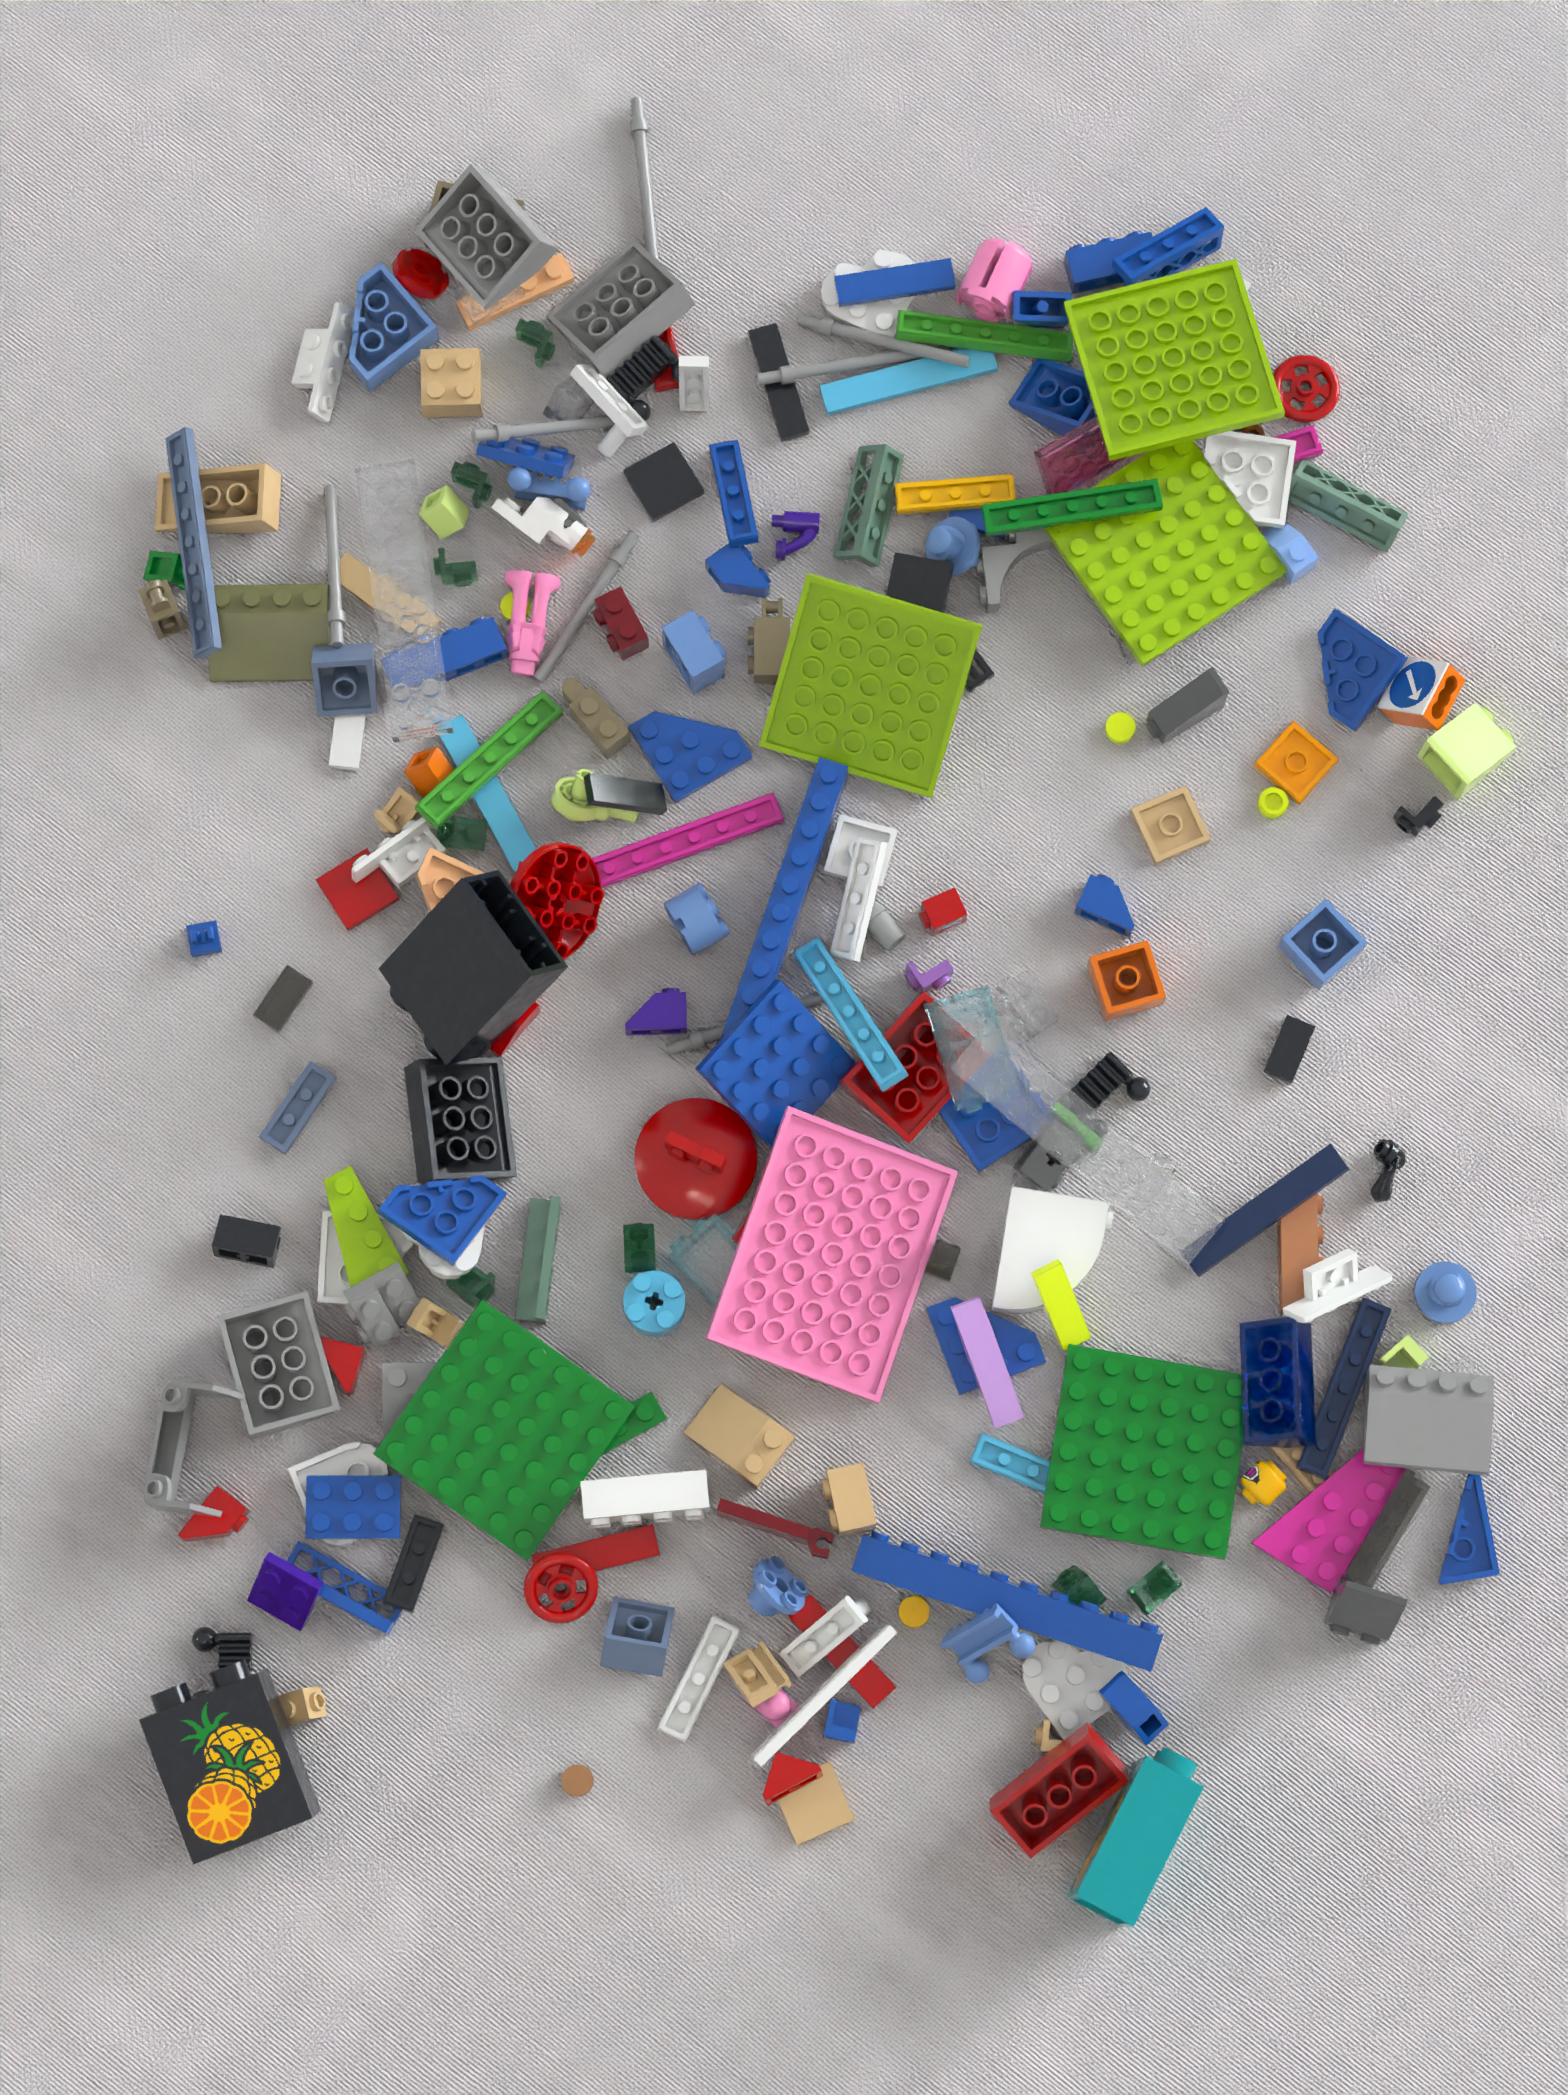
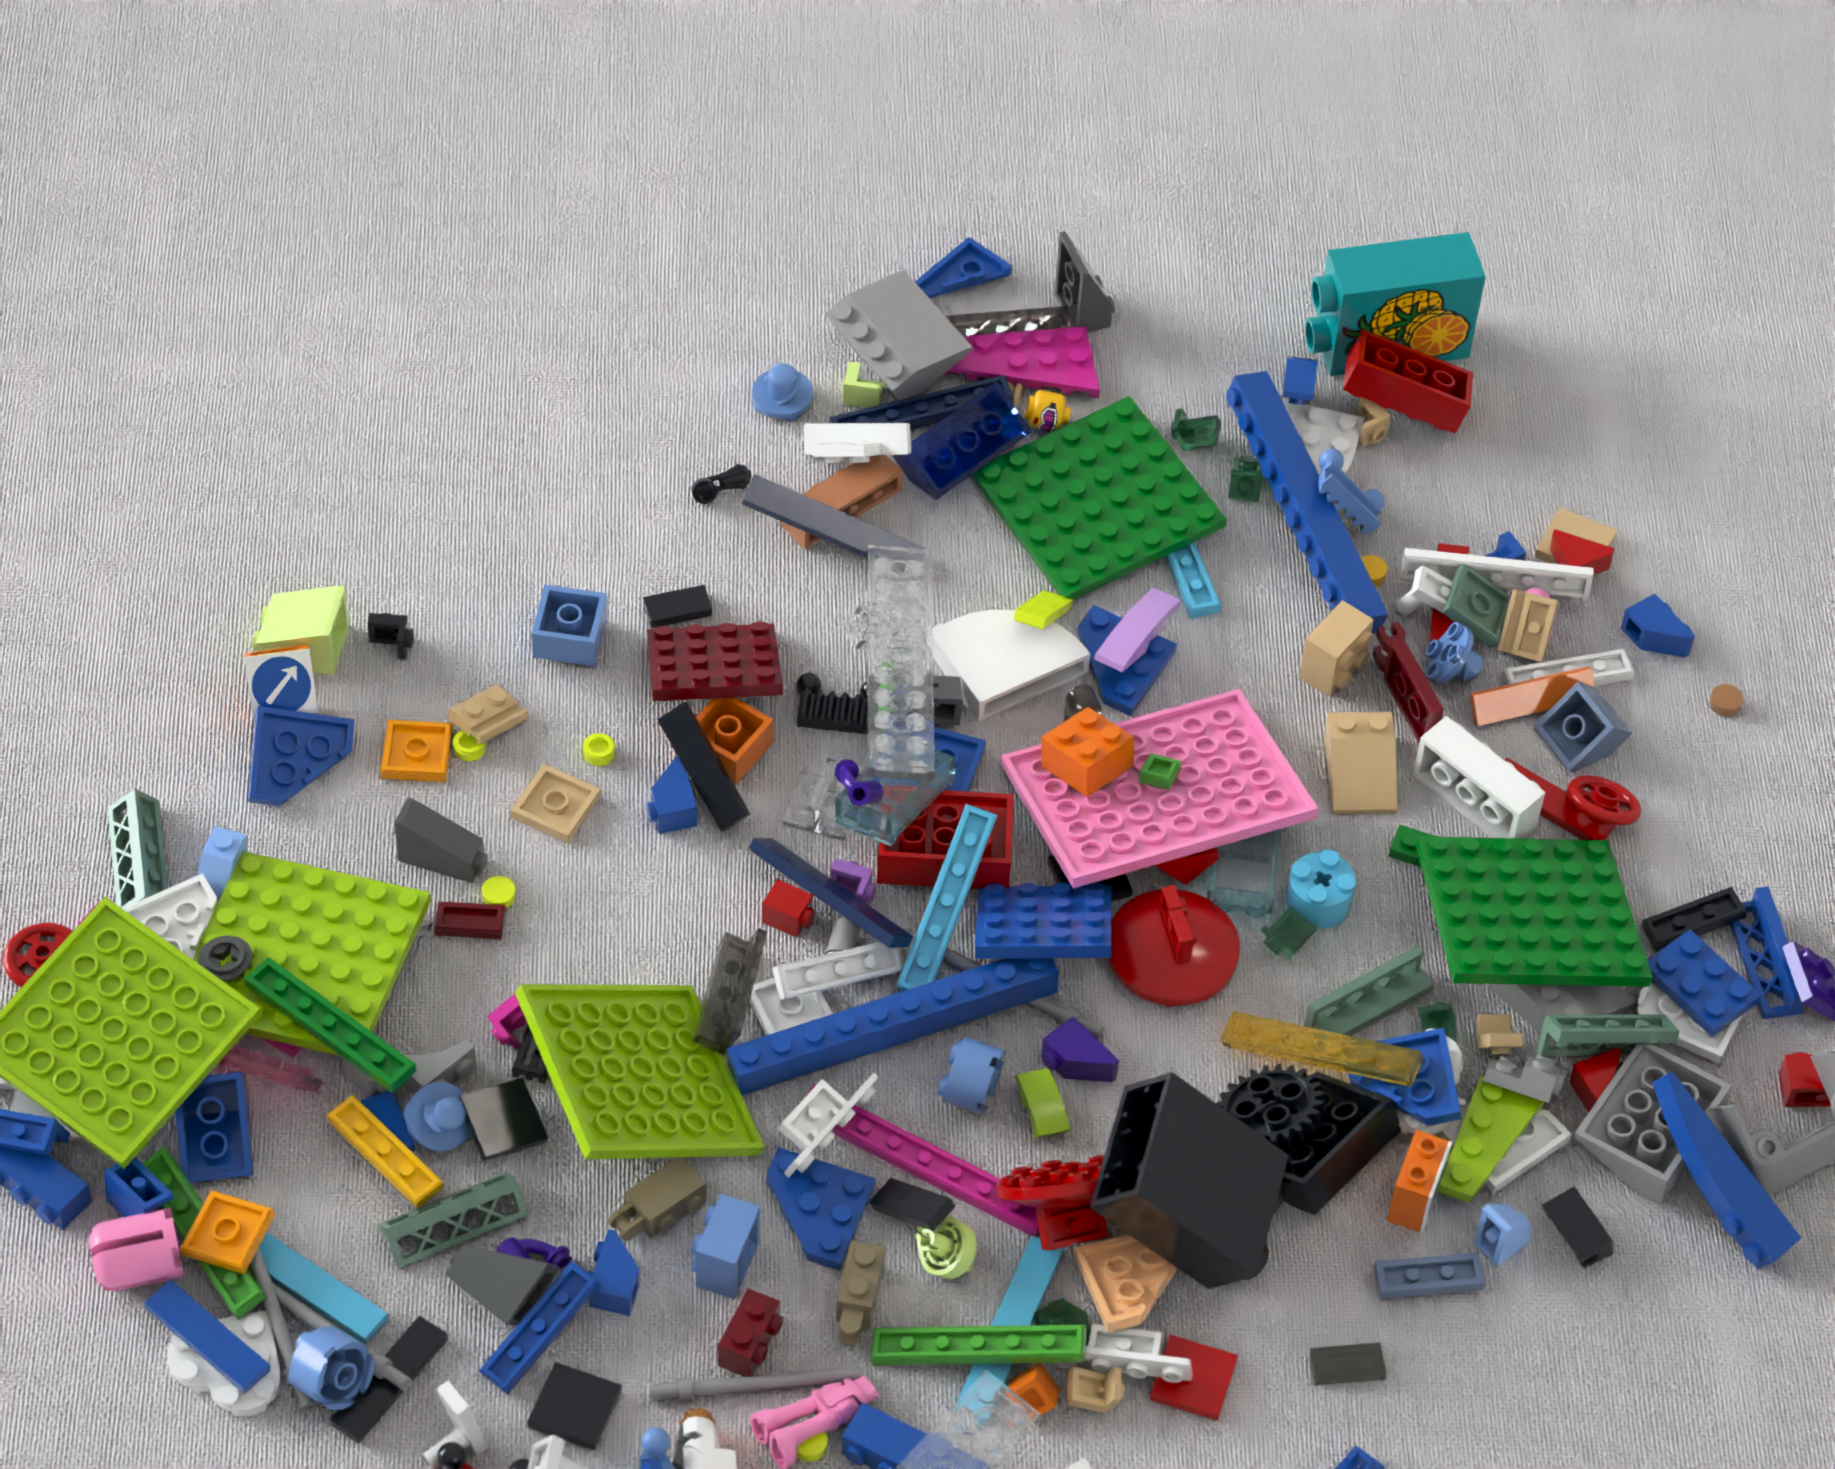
camera: 130 degrees left, 25 degrees down
(171, 1358) = (1723, 1177): none -> blue slope
(283, 1182) = (1501, 1232): none -> light blue slope
(360, 1386) = (1602, 1030): none -> sand green fence
(363, 1153) = (1419, 1181): none -> orange piece
(515, 1131) = (1277, 1103): none -> black gear
(518, 1176) = (1322, 1048): none -> clear yellow plate
(642, 959) = (1044, 1103): none -> lime slope
(682, 1783) = (1657, 628): none -> blue slope
(696, 1624) = (1525, 696): none -> tile
(745, 790) = (817, 1115): none -> white bracket
(790, 492) = (501, 1281): none -> dark grey slope
(803, 335) = (330, 1367): none -> medium blue brick
(805, 1650) = (1477, 605): none -> sand green tile
(839, 1260) = (1159, 771): none -> bright green tile
(897, 1218) = (1087, 751): none -> orange brick
(902, 813) = (729, 991): none -> clear smoke fence
(927, 944) = (831, 893): none -> dark blue tile
(961, 341) = (227, 1232): none -> light orange tile
(976, 1013) = (858, 792): none -> dark purple plant
(995, 645) = (506, 1020): none -> dark pink bracket
(1107, 935) = (704, 766): none -> black tile
(1111, 692) = (470, 920): none -> dark red tile
(1190, 471) = (219, 949): none -> dark grey gear
(1196, 892) = (599, 749): none -> neon yellow tile
(1201, 1019) = (714, 661): none -> dark red plate
(1287, 831) = (487, 714): none -> tan plate

